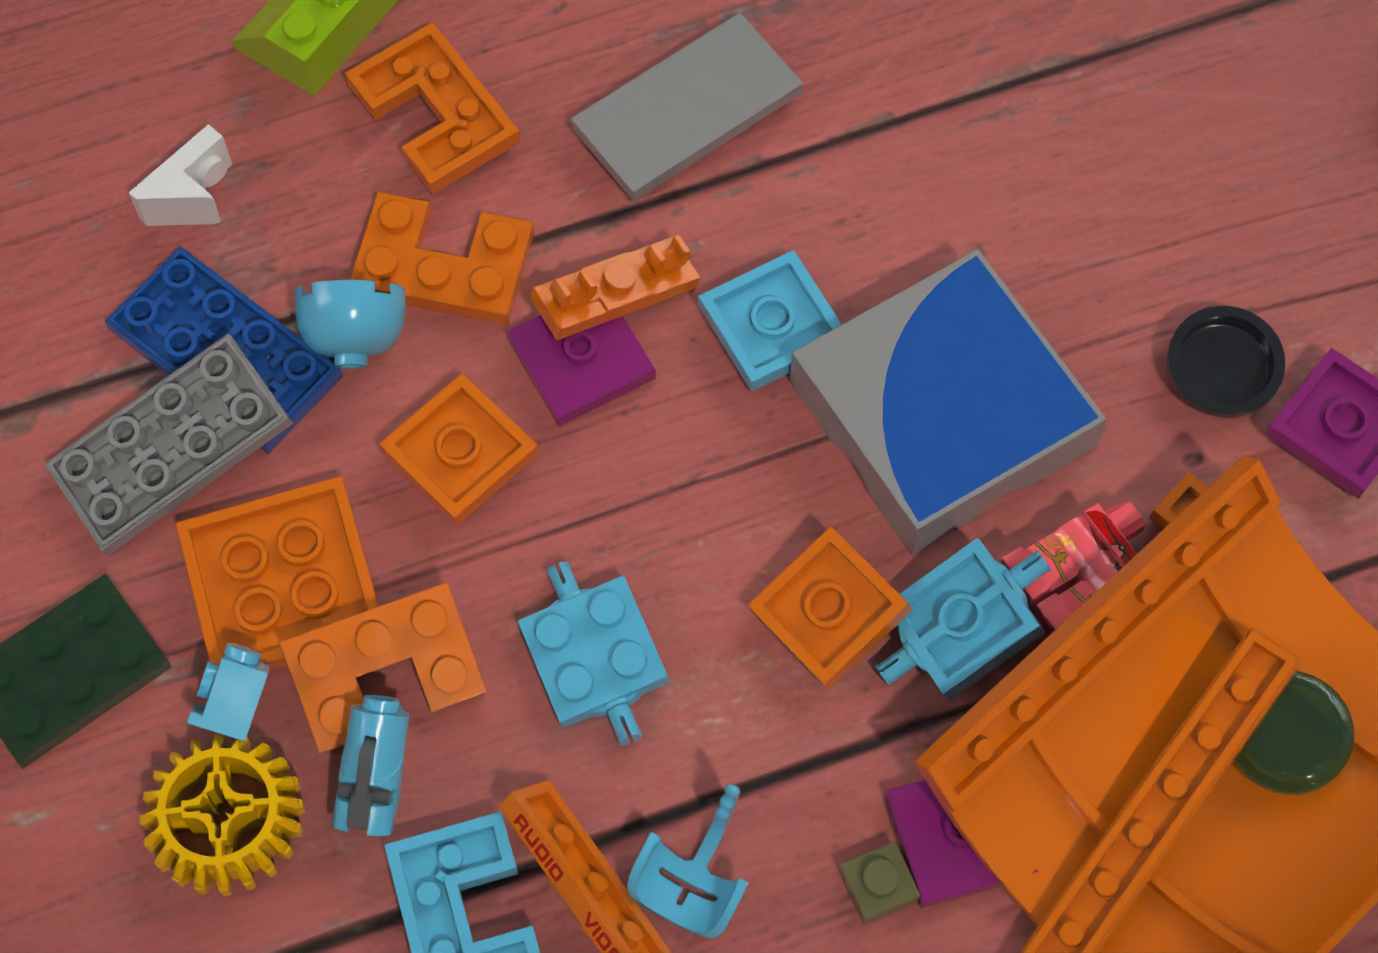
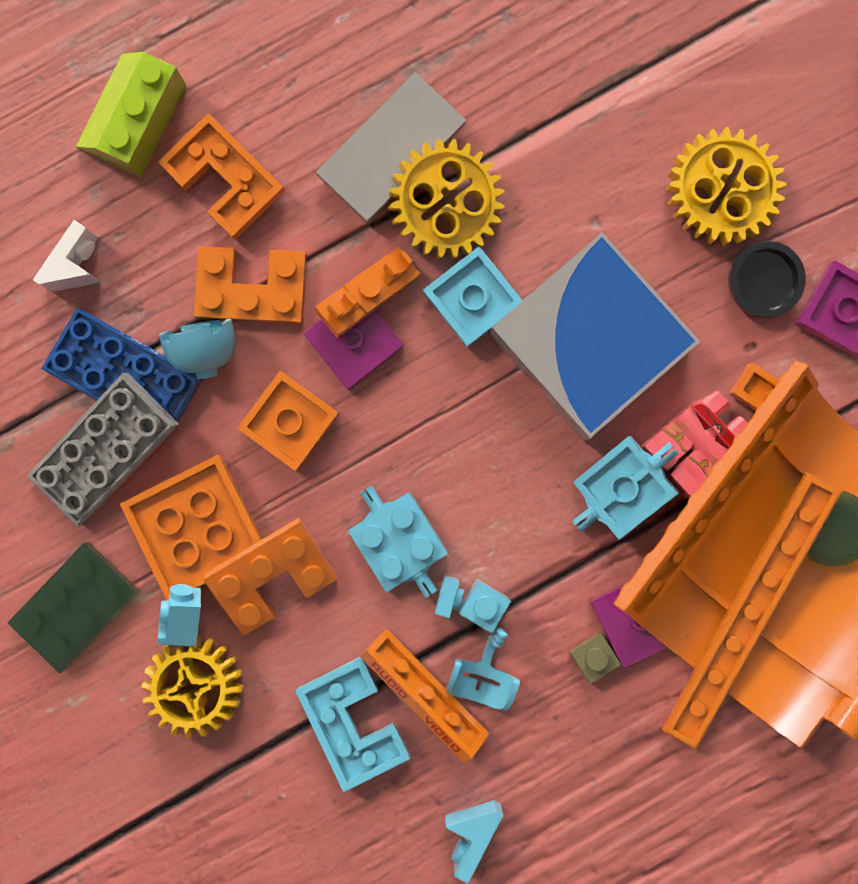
camera: 10 degrees left, 20 degrees up
(372, 767) = (277, 646): medium azure piece -> none
(658, 742) = (449, 597): none -> medium azure plate
(711, 760) = (484, 605): none -> medium azure brick
(731, 142) = (426, 173): none -> yellow gear
(830, 607) = (540, 492): orange plate -> none
(1137, 199) = (752, 202): none -> yellow gear

